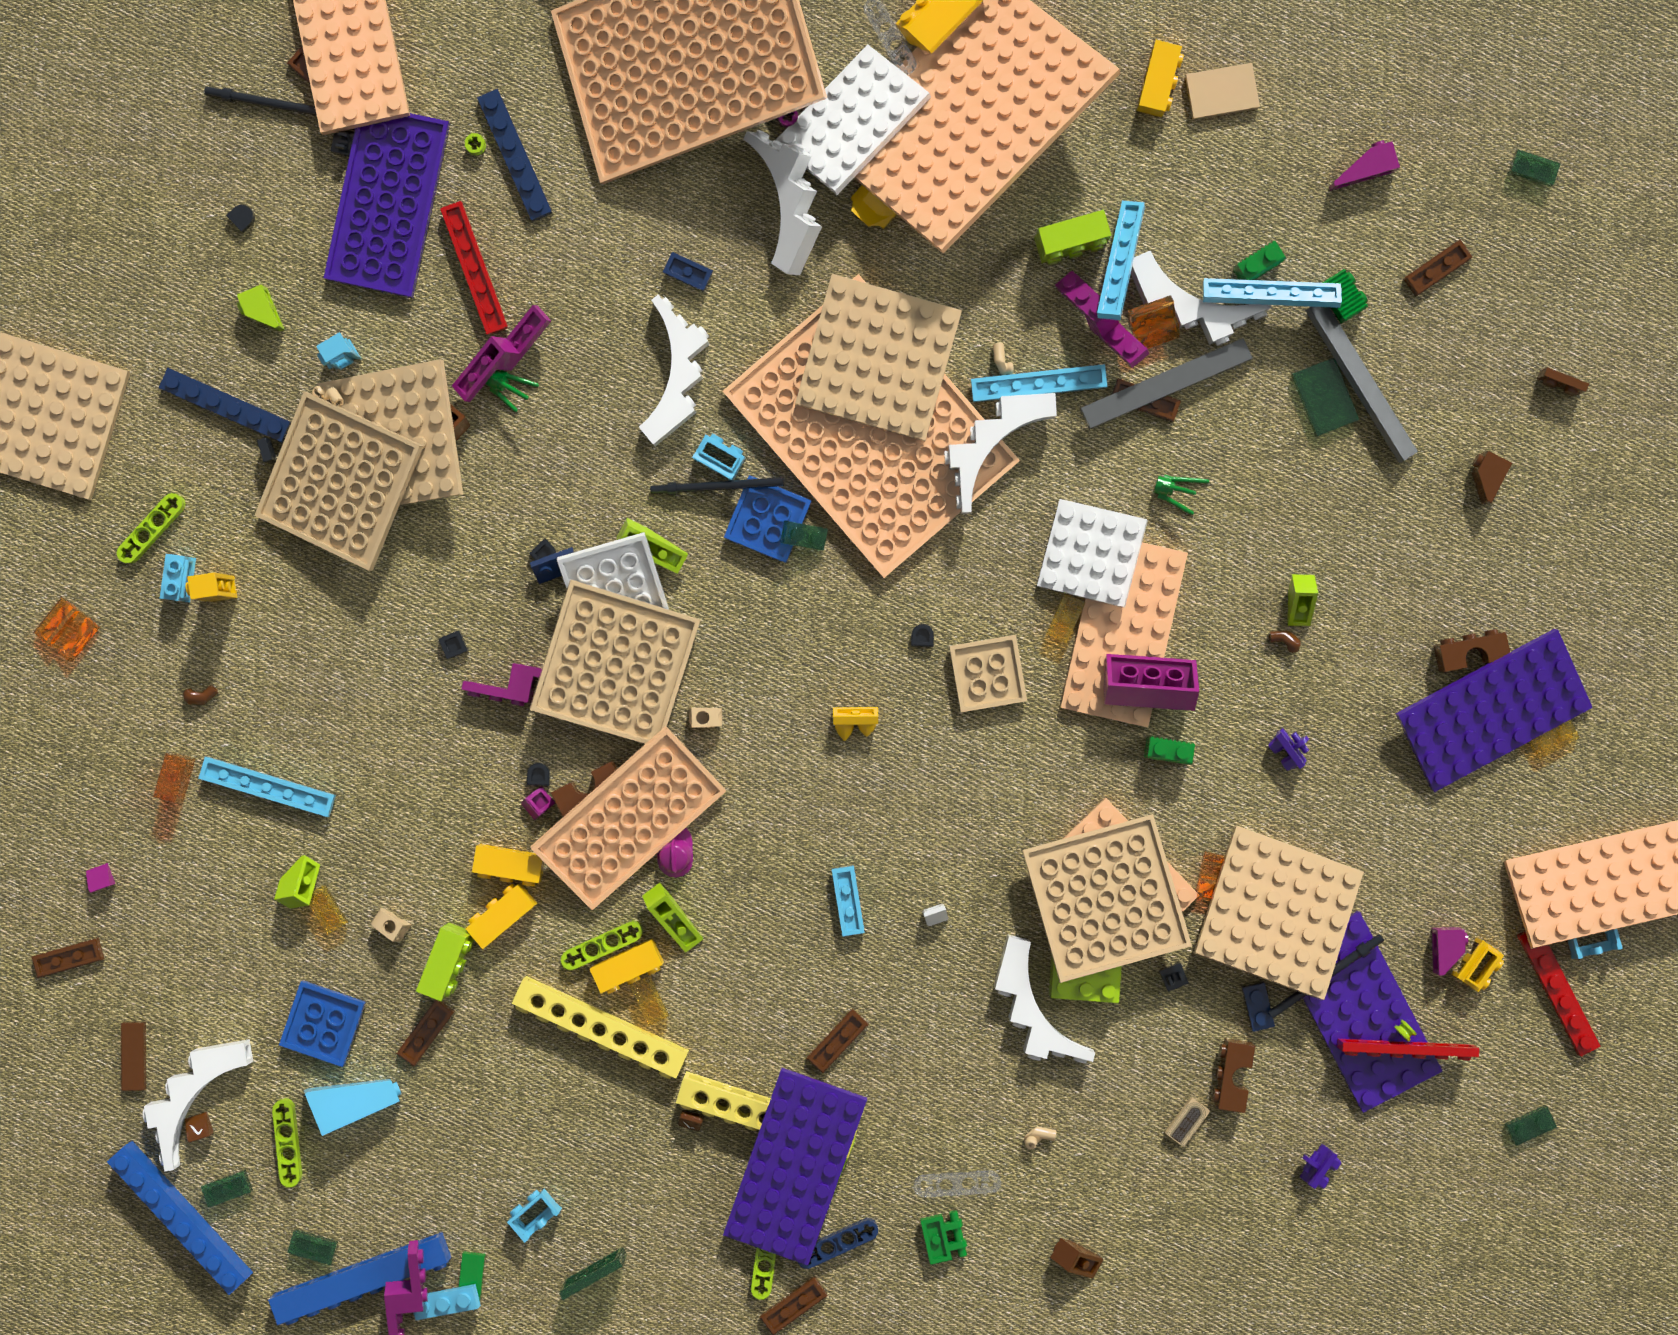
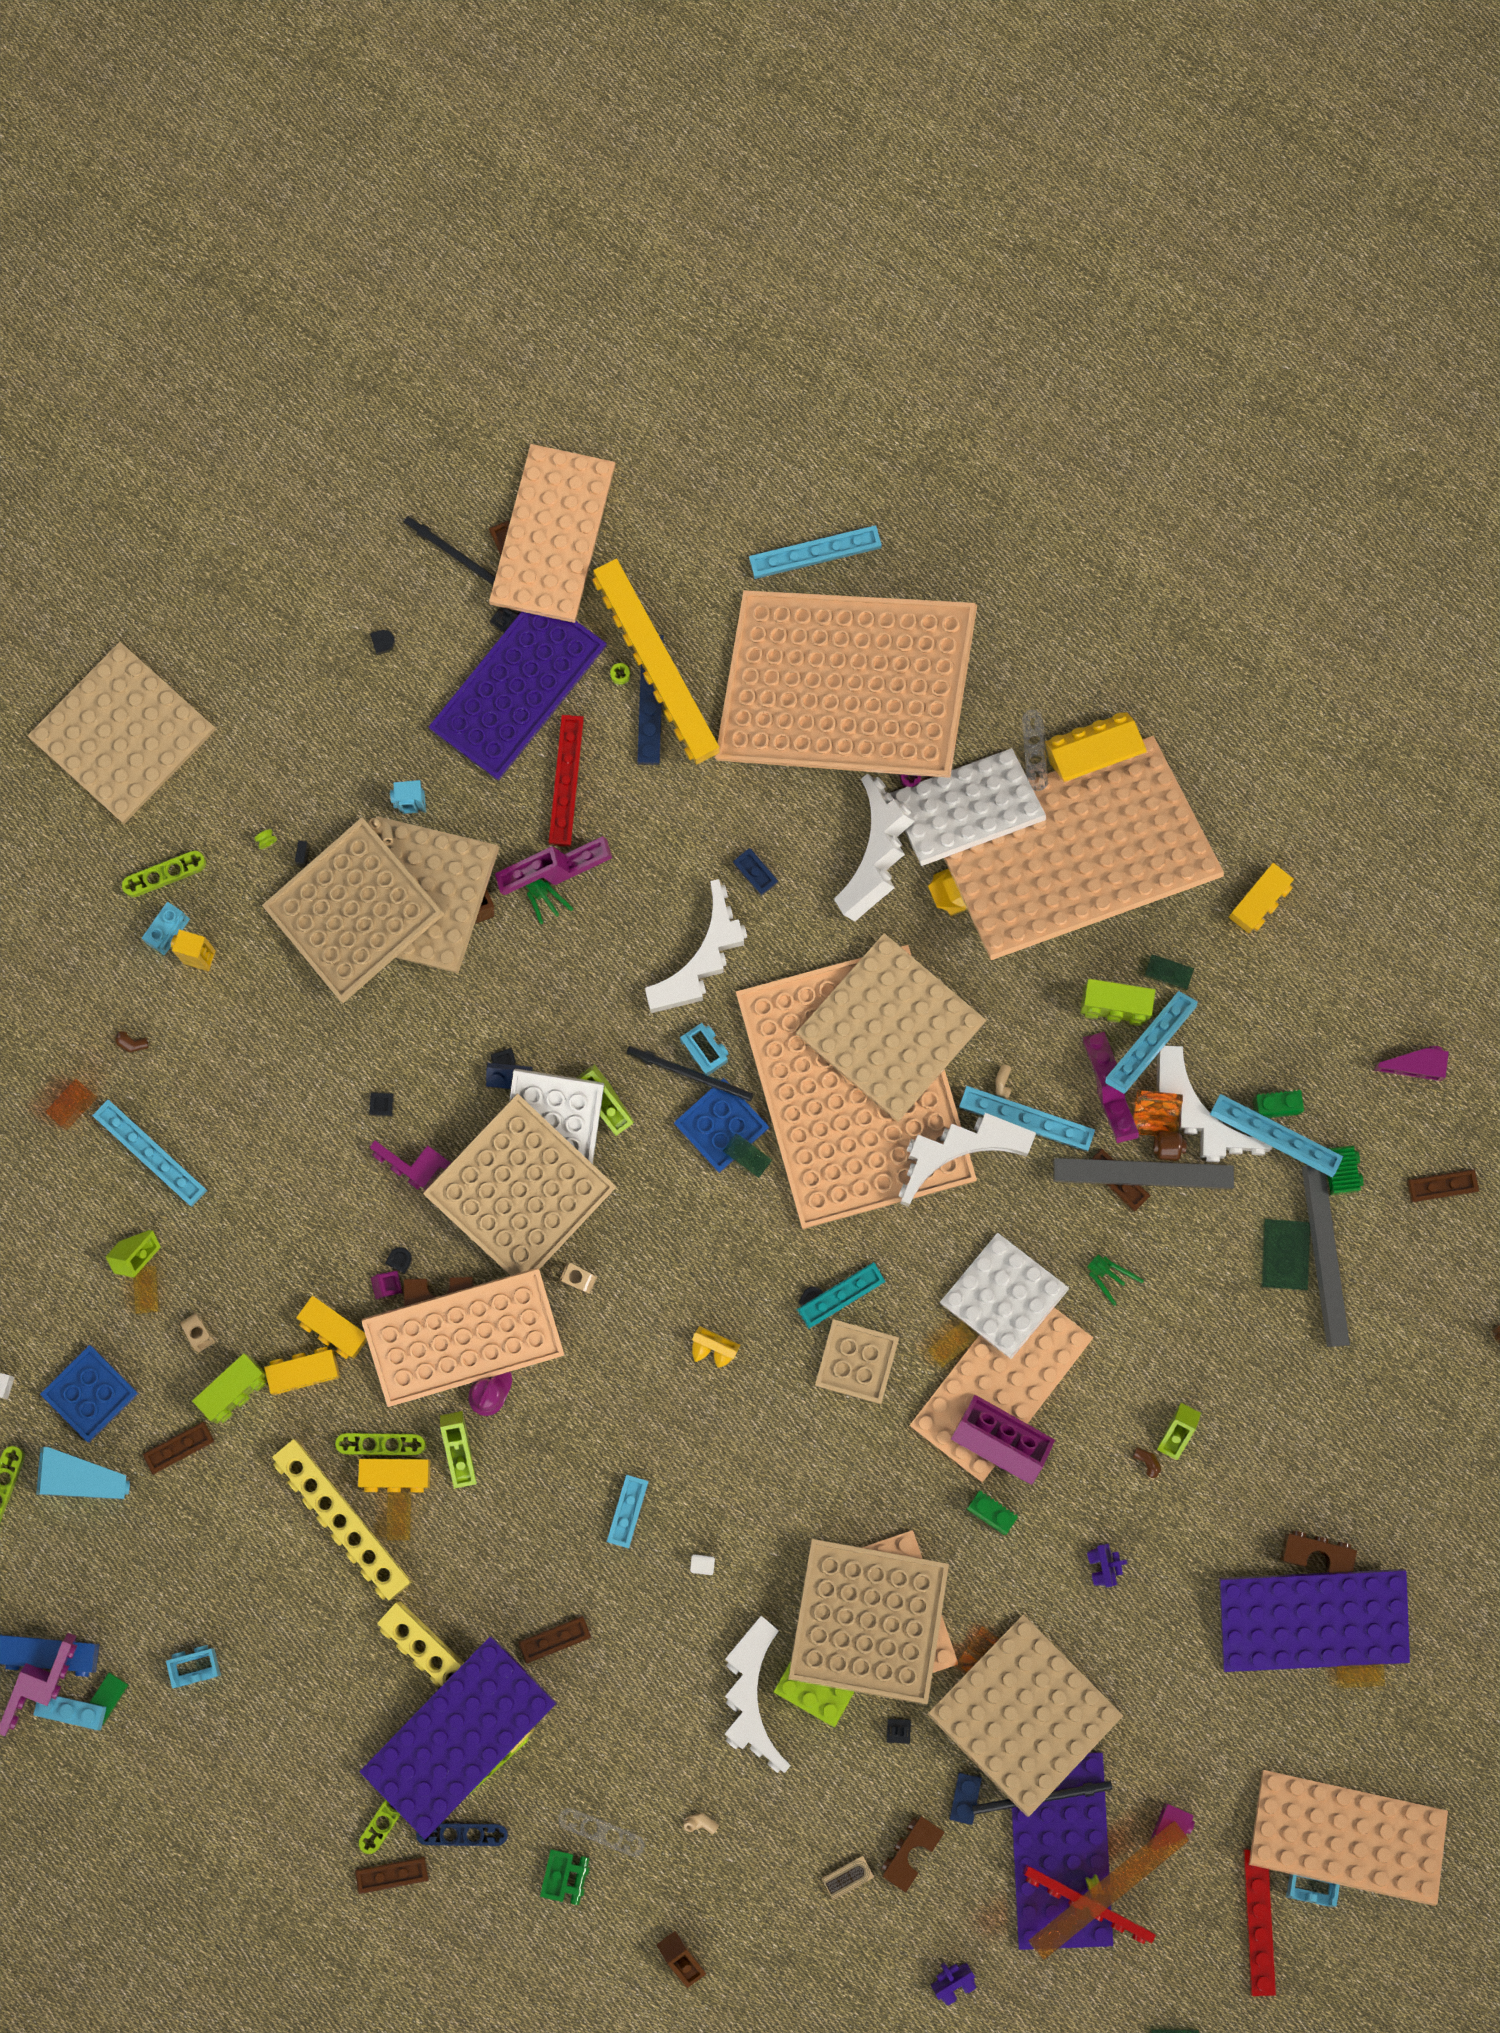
camera: 25 degrees right, 10 degrees down
(66, 629) = (43, 927): clear orange slope -> none
(225, 405) = (285, 797): dark blue plate -> none
(226, 452) = (265, 839): none -> lime bush
(259, 306) = (359, 726): lime slope -> none
(501, 116) = (656, 662): none -> yellow brick
(593, 1273) = (221, 1748): clear green tile -> none
(690, 1120) = (381, 1649): reddish brown slope -> none
(946, 621) = (840, 1295): none -> teal tile
(1105, 187) = (1169, 972): none -> clear green plate
(1178, 347) = (1169, 1145): none -> reddish brown head
(1222, 91) = (1314, 936): tan tile -> none
(1421, 1030) = (1108, 1890): none -> clear orange plate
(1473, 960) = (1189, 1850): yellow window -> none
(1489, 474) = (1406, 1397): reddish brown slope -> none

